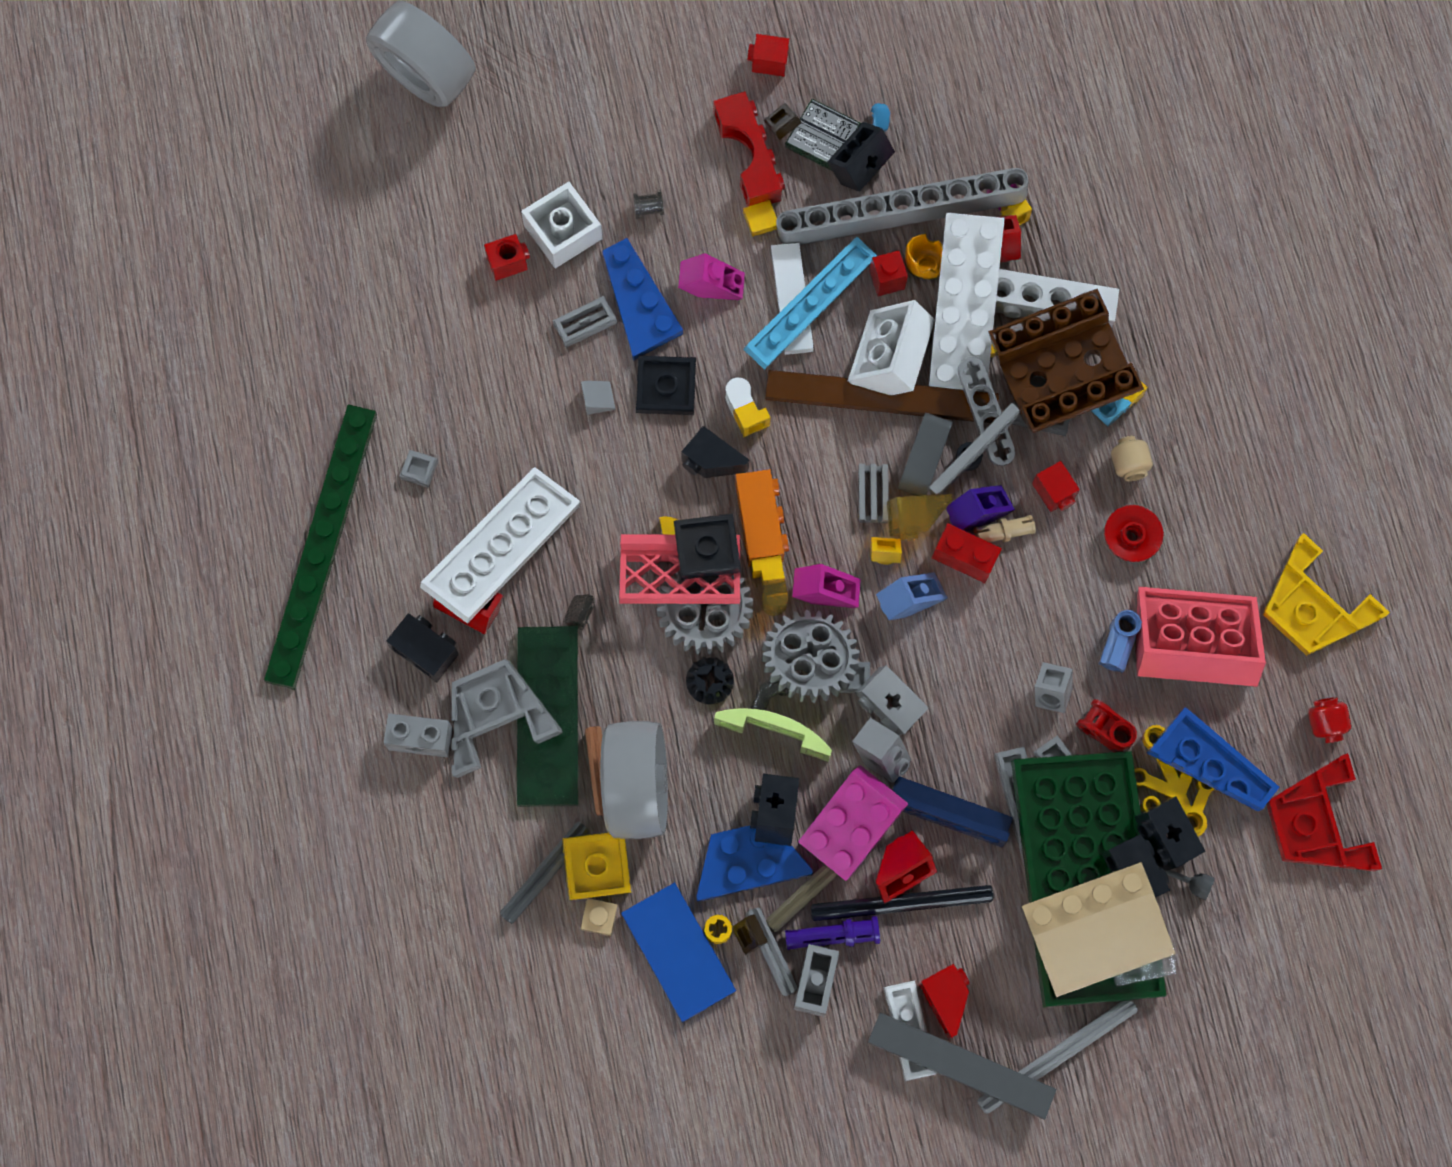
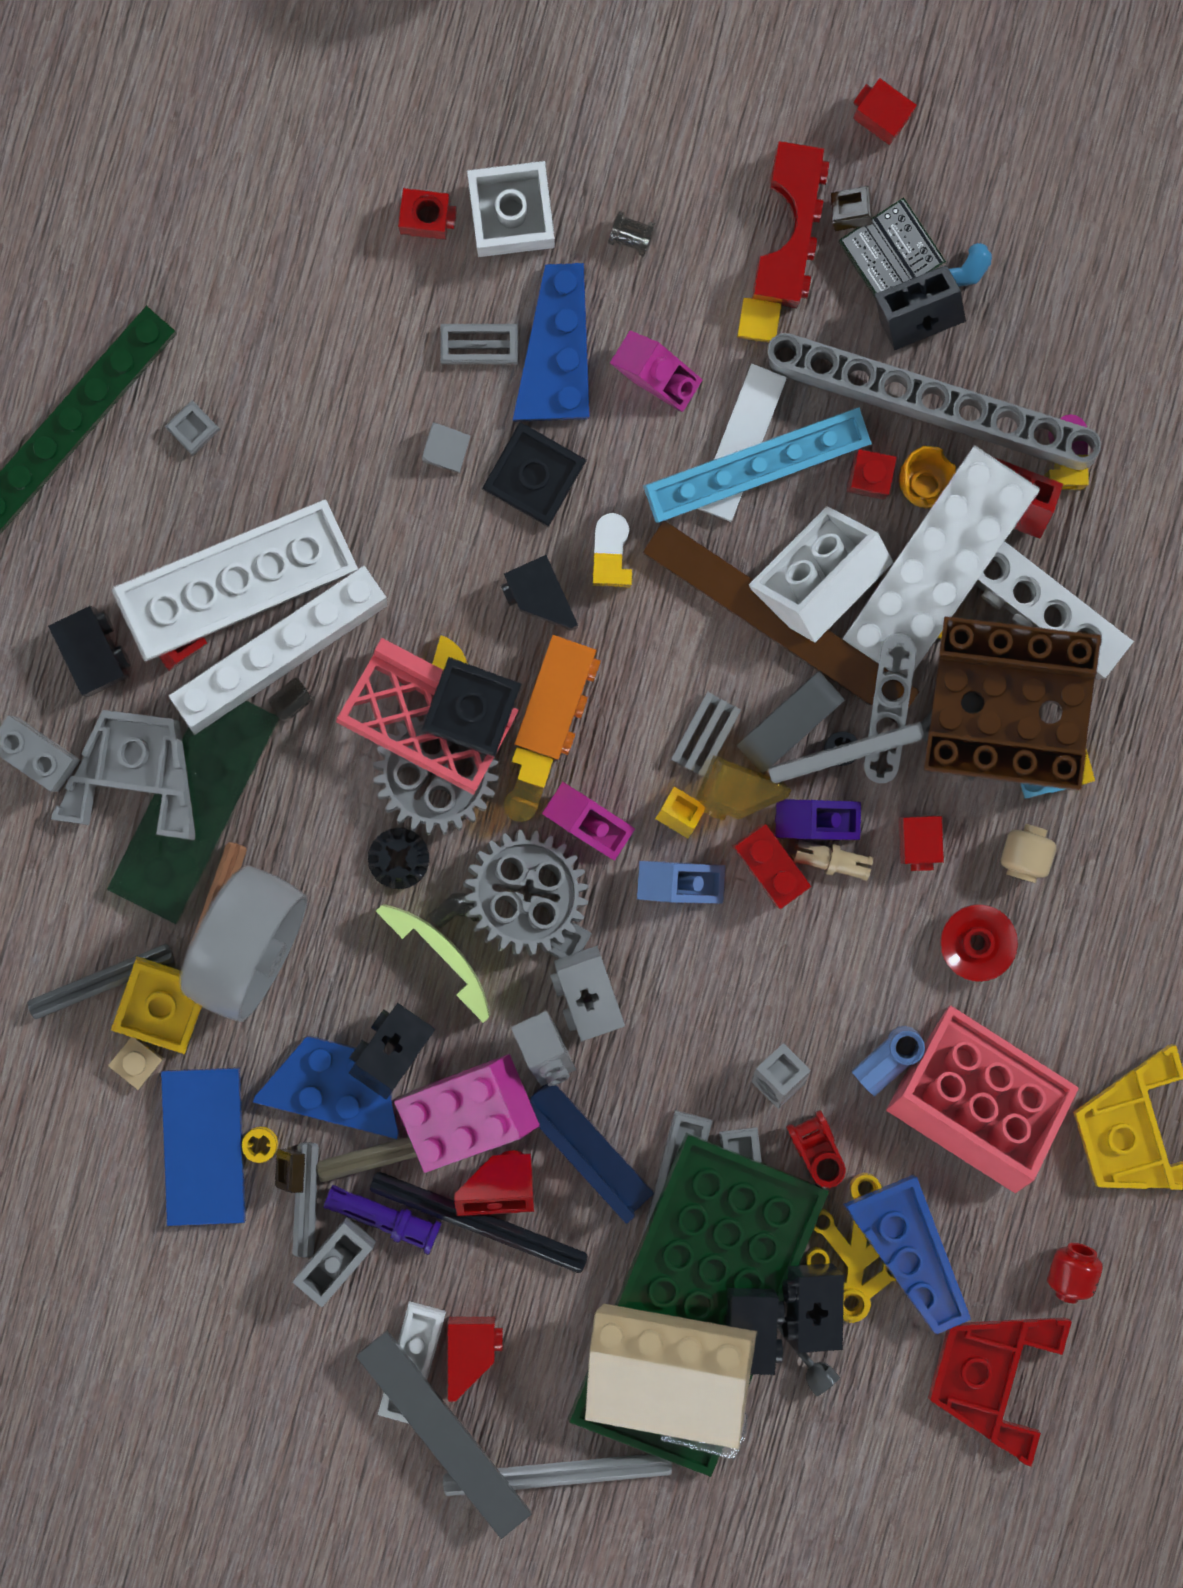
camera: 35 degrees right, 15 degrees up
(554, 578) = (278, 650): none -> white brick

